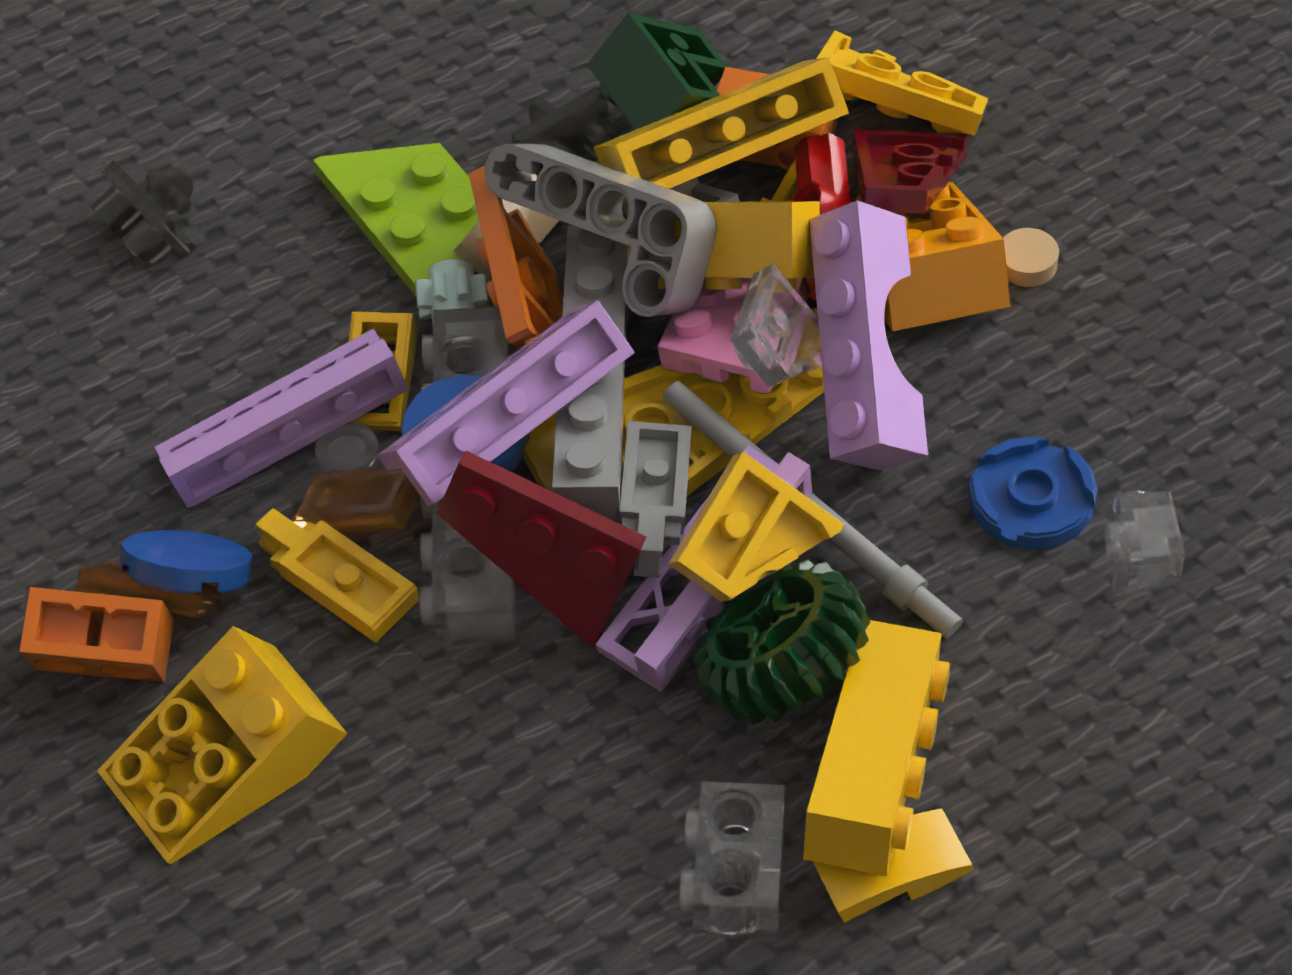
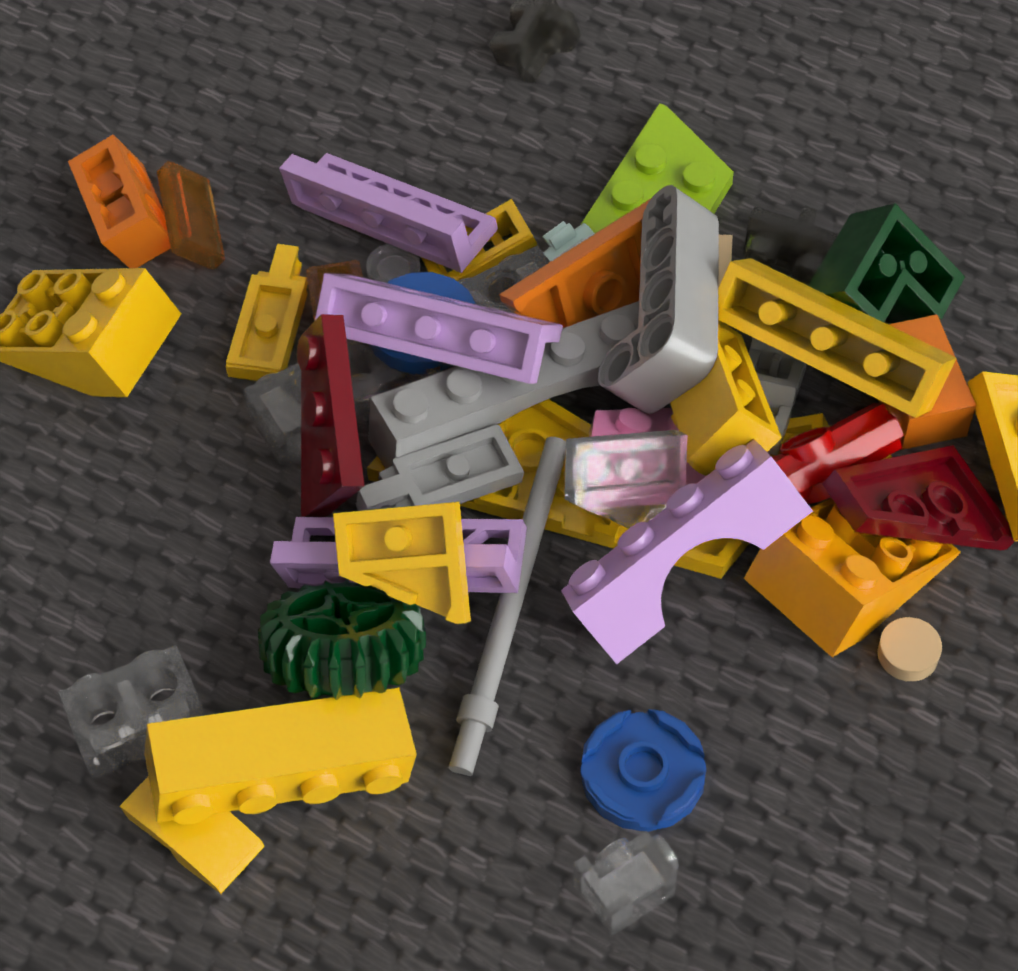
camera: 60 degrees right, 5 degrees up
(185, 560) = (217, 219): blue tile -> none

